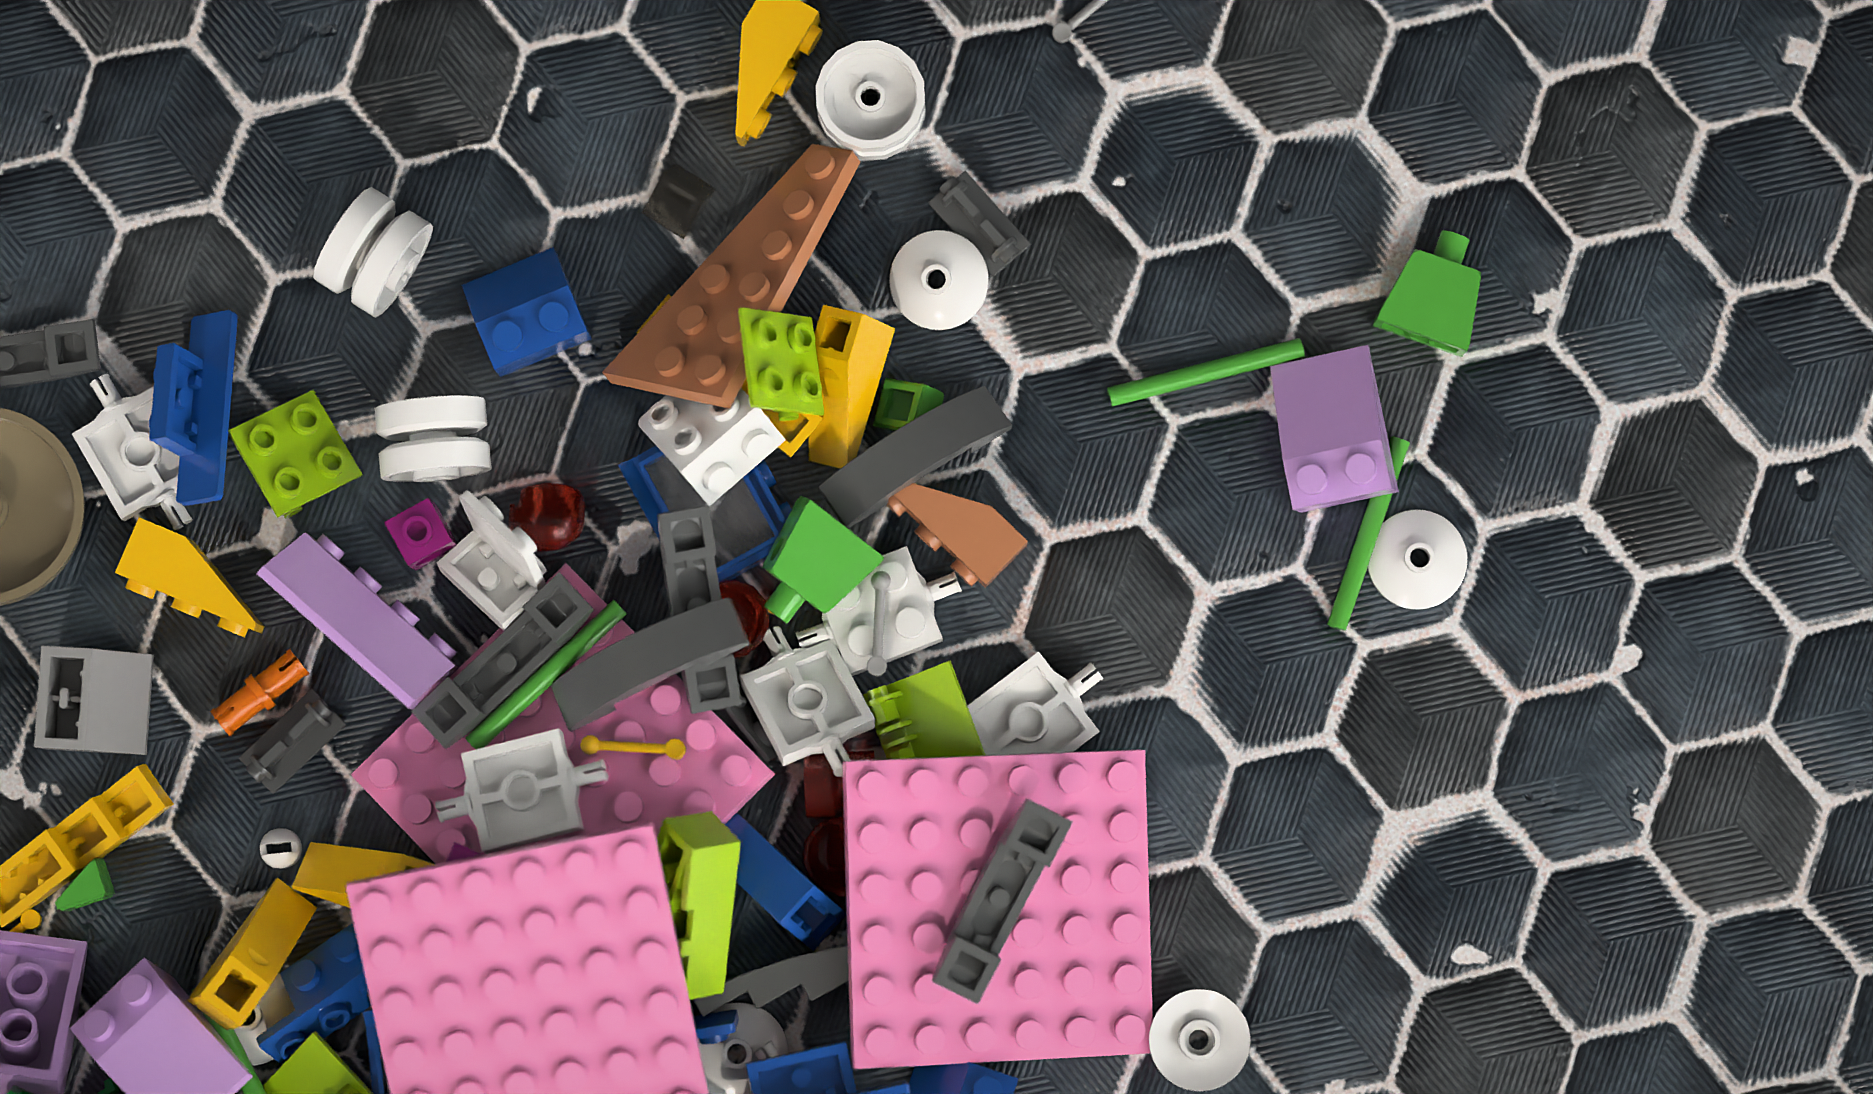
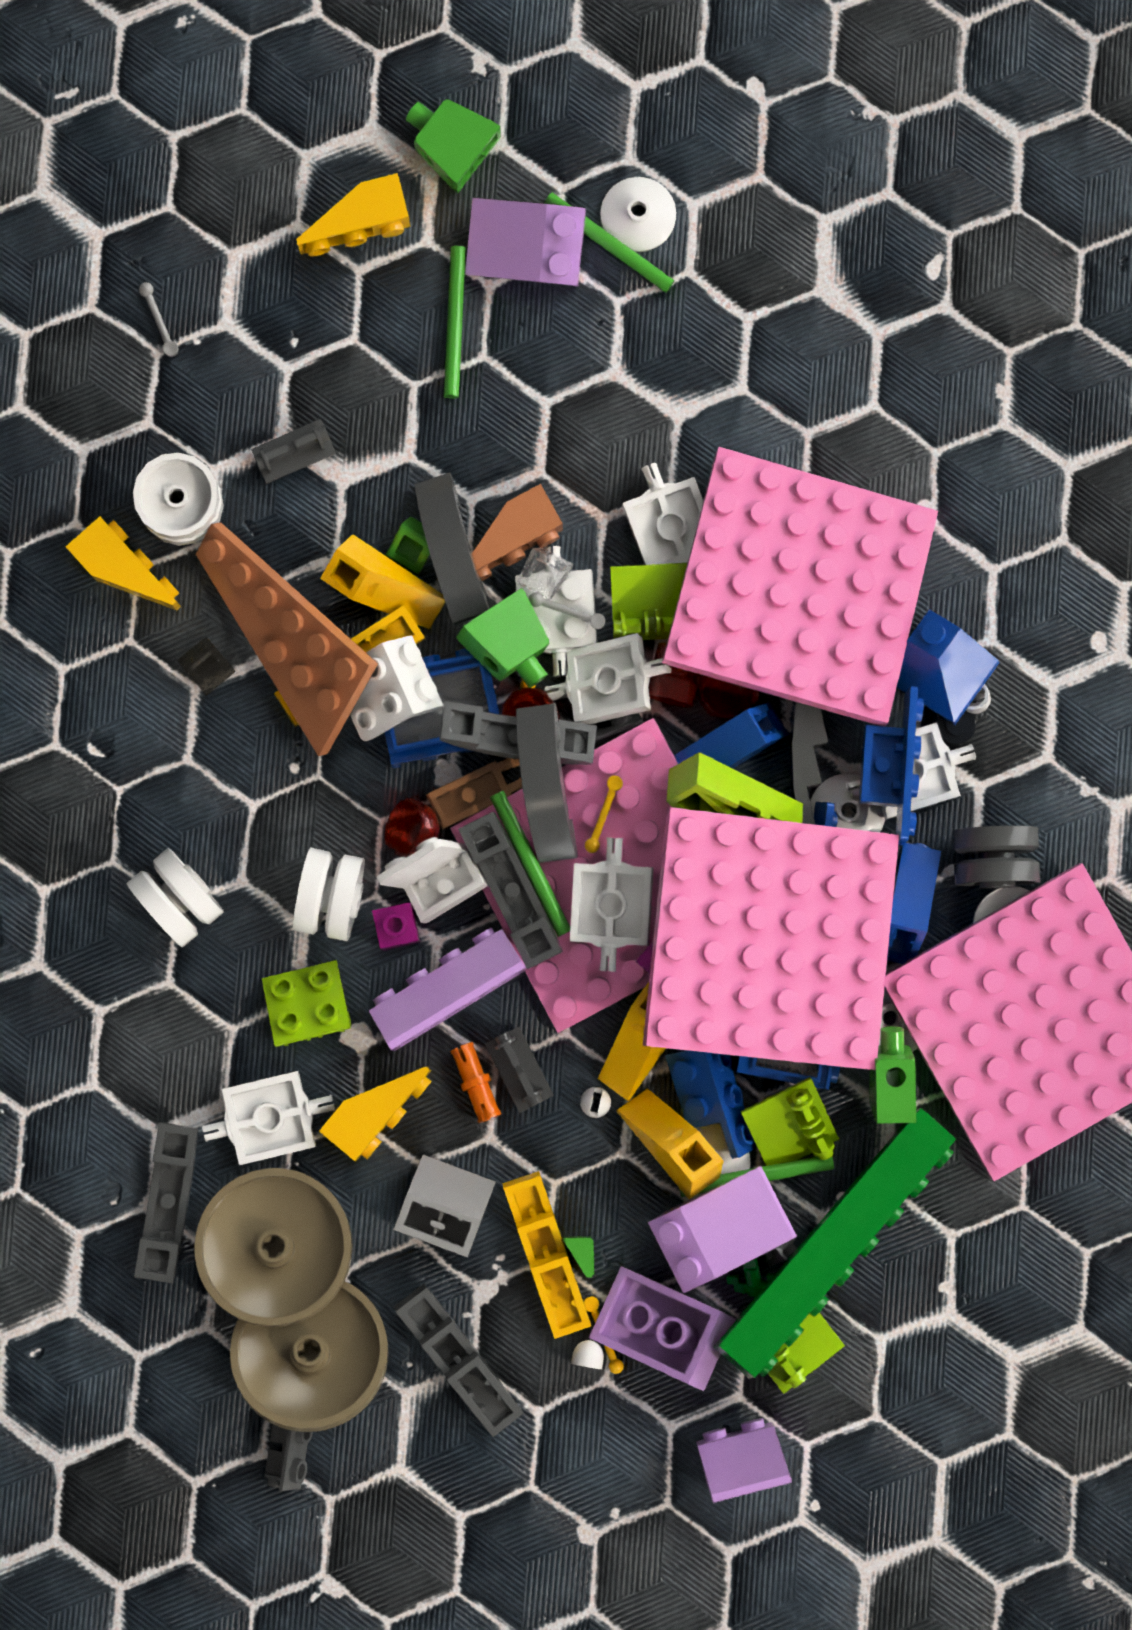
camera: 75 degrees left, 0 degrees up
(194, 405) = (247, 1063): blue bracket -> none
(526, 312) = (253, 801): blue slope -> none
(615, 575) = (472, 792): none -> medium nougat hinge
(781, 363) = (355, 617): lime hinge -> none
(919, 581) = (544, 572): none -> clear slope
(964, 284) = (326, 514): white dish -> none
(998, 899) = (796, 580): dark grey slope -> none
(1226, 1045) = (952, 461): white dish -> none
(1308, 217) = (364, 212): none -> yellow slope

